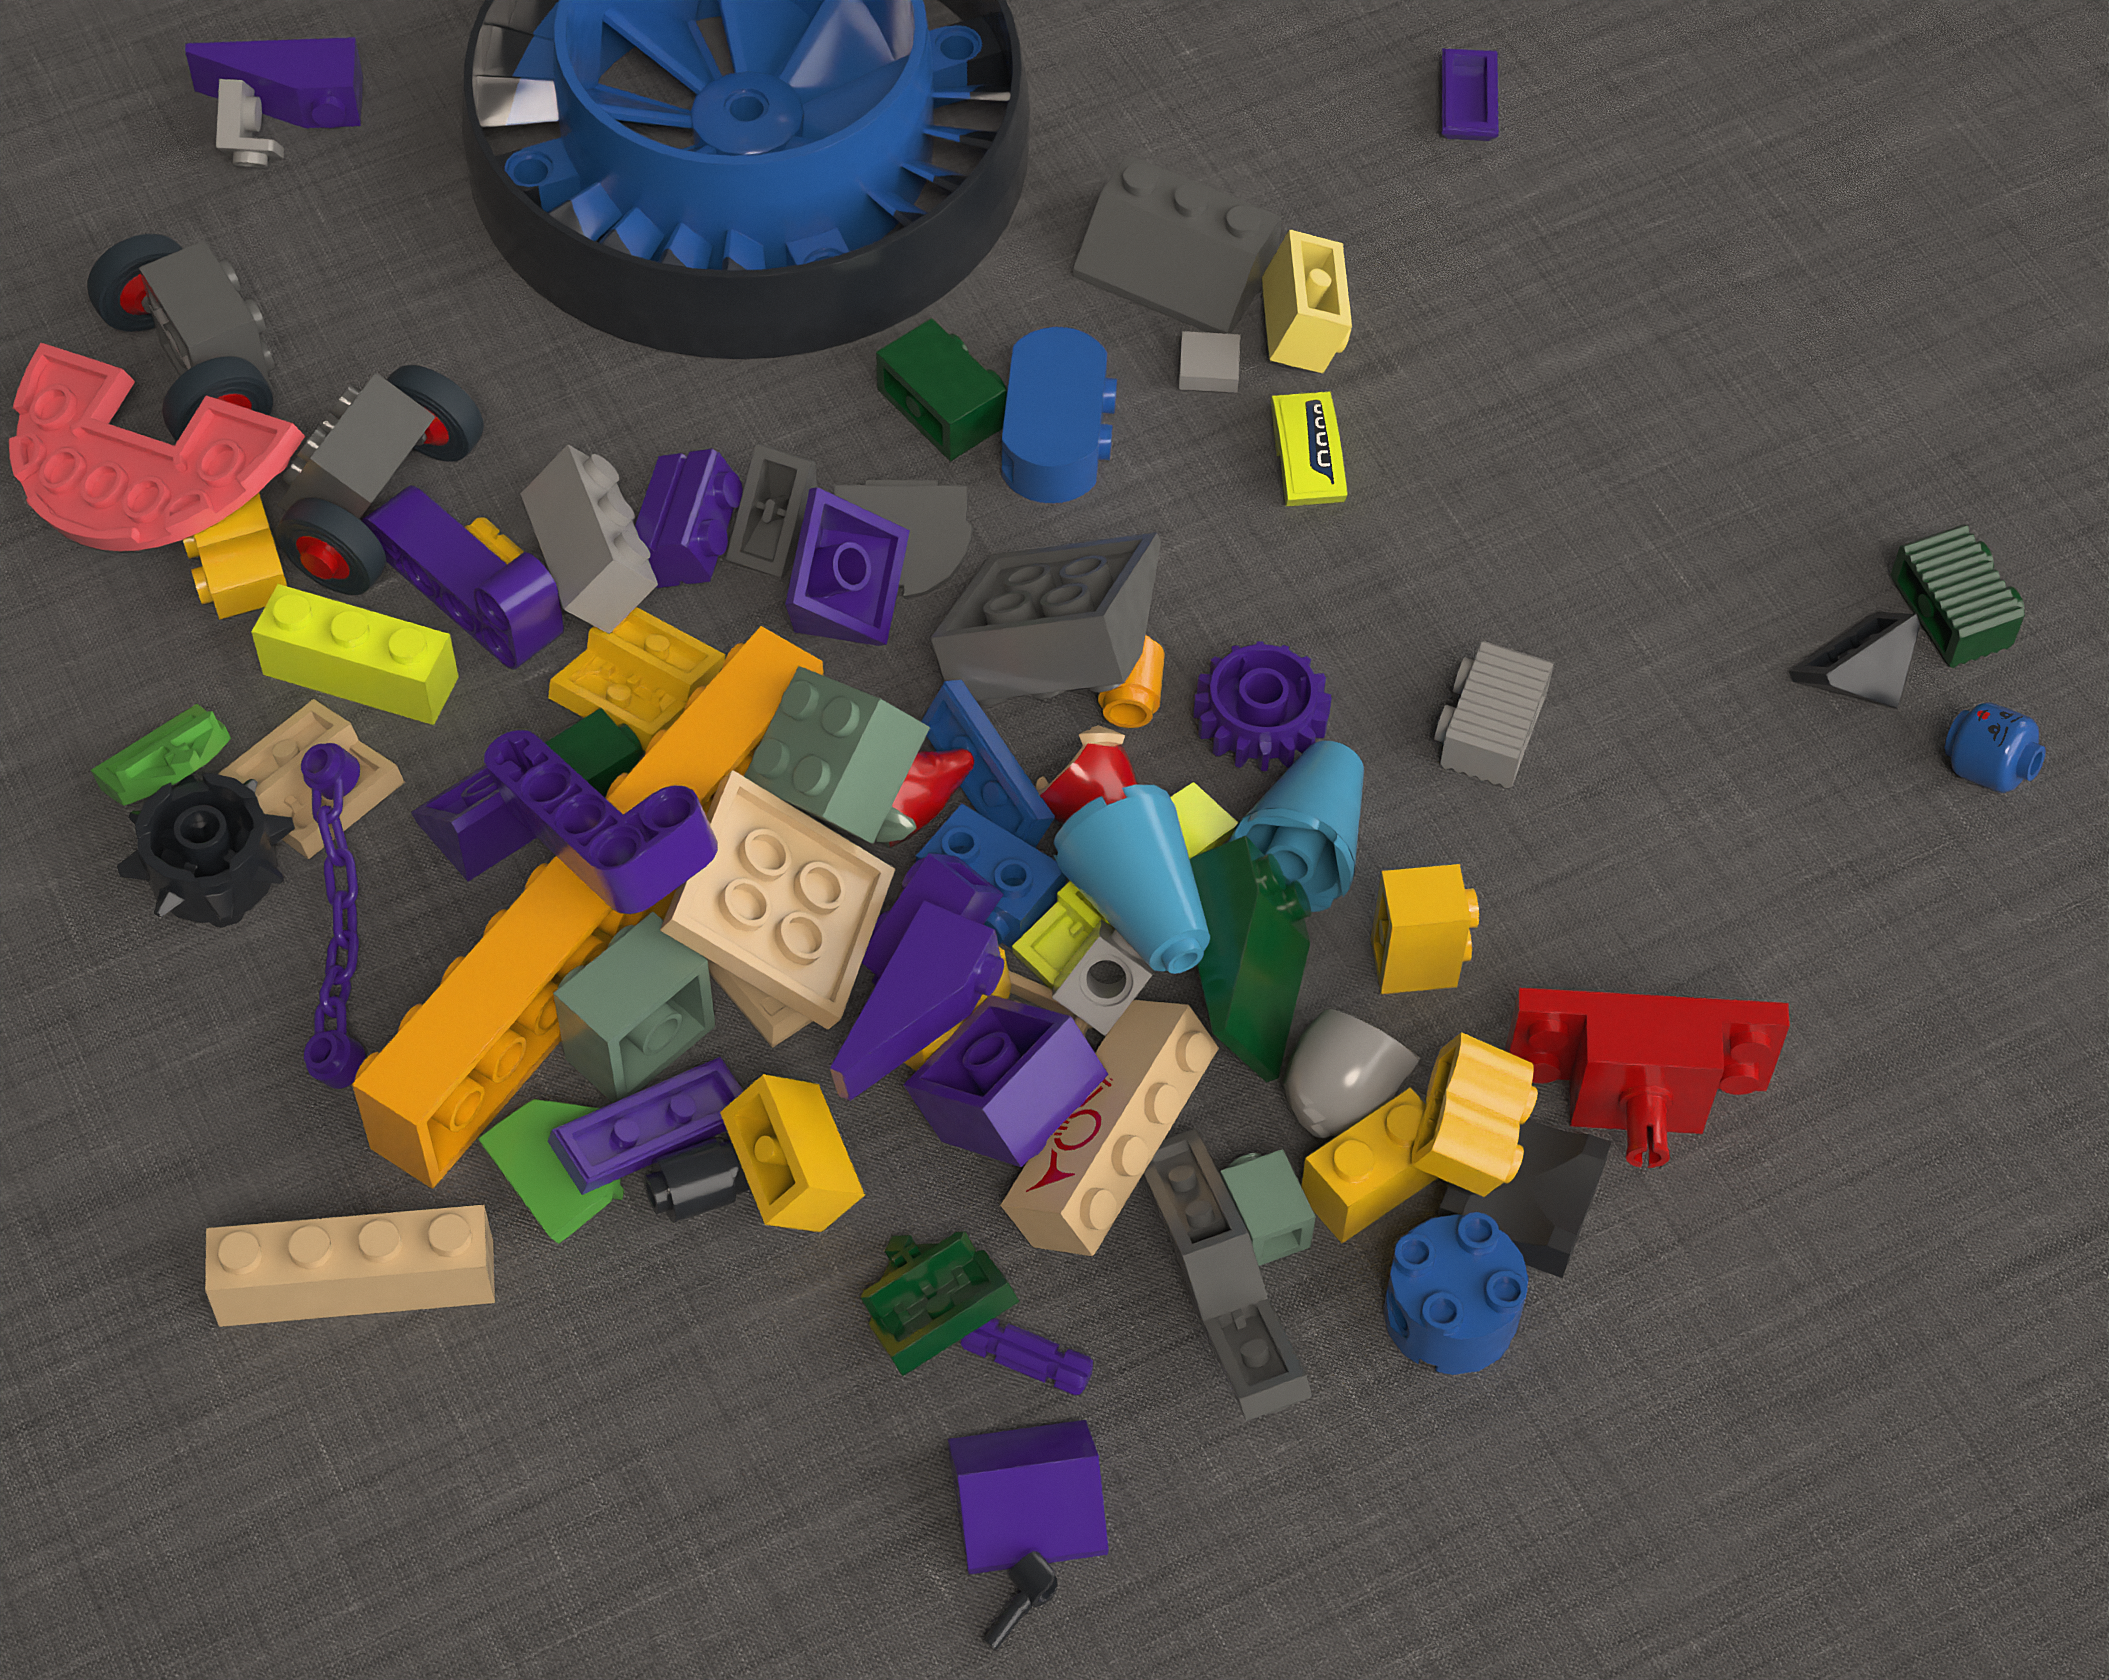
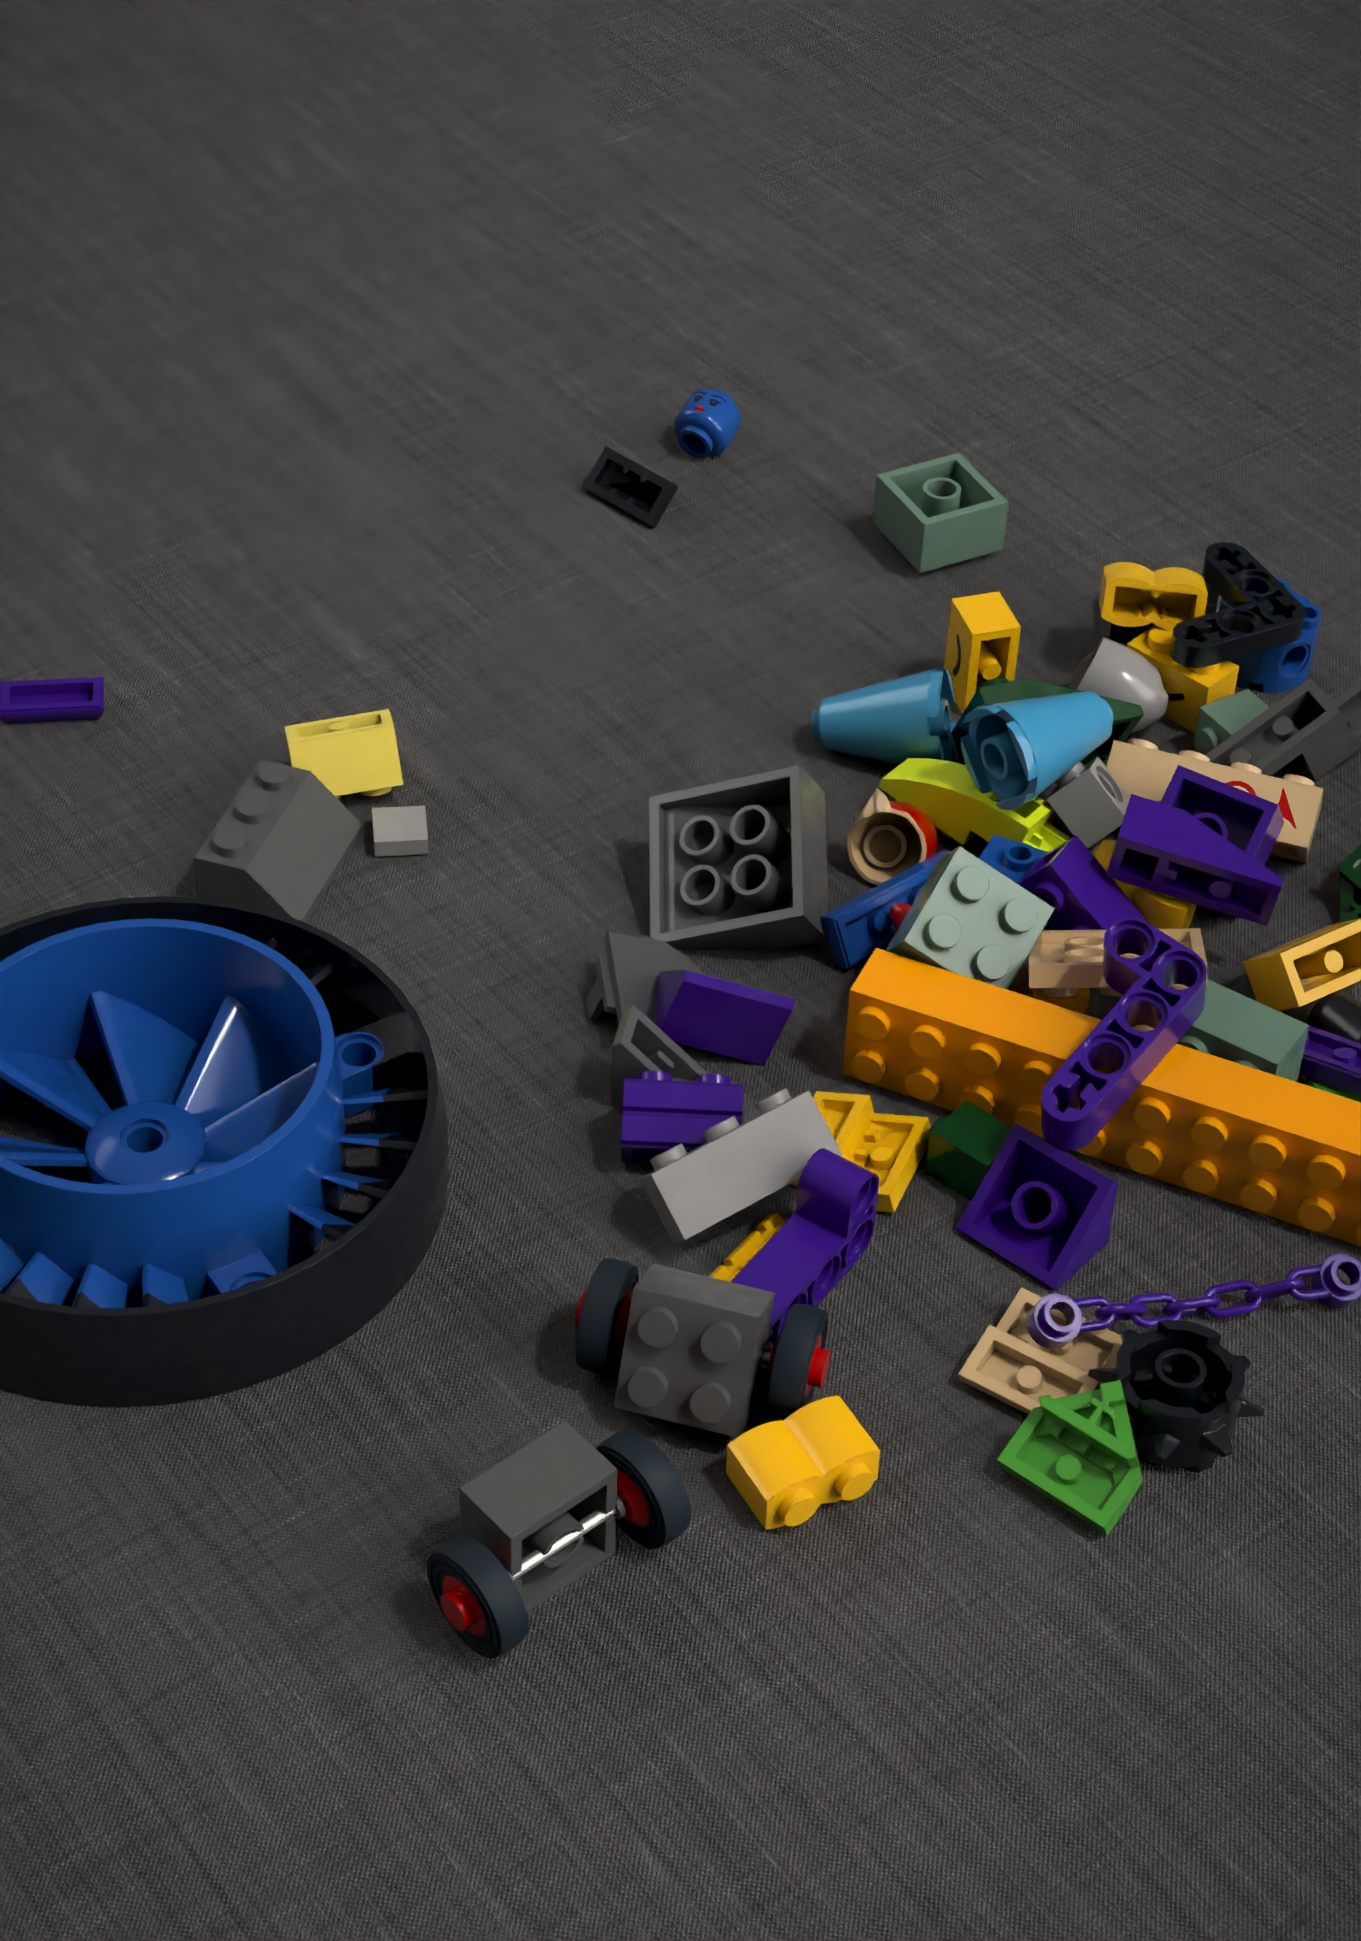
camera: 100 degrees left, 15 degrees down
(124, 487) = (757, 1574): coral plate -> none
(237, 117) = (197, 1578): light grey bracket -> none
(296, 79) = (117, 1553): dark purple slope -> none
(355, 654) = (907, 1338): neon yellow brick -> none
(941, 388) = (477, 980): dark green brick -> none
(1056, 415) = (493, 906): blue brick -> none
(1261, 704) = (778, 744): dark purple gear -> none
(1309, 448) = (479, 761): neon yellow slope -> none
(1417, 1228) = (1266, 618): none -> black beam
(1495, 713) = (747, 645): light grey brick -> none
(1646, 1057) = (1054, 548): red brick -> none
(1758, 947) = (939, 512): none -> sand green brick
(1958, 594) = (567, 439): dark green brick -> none

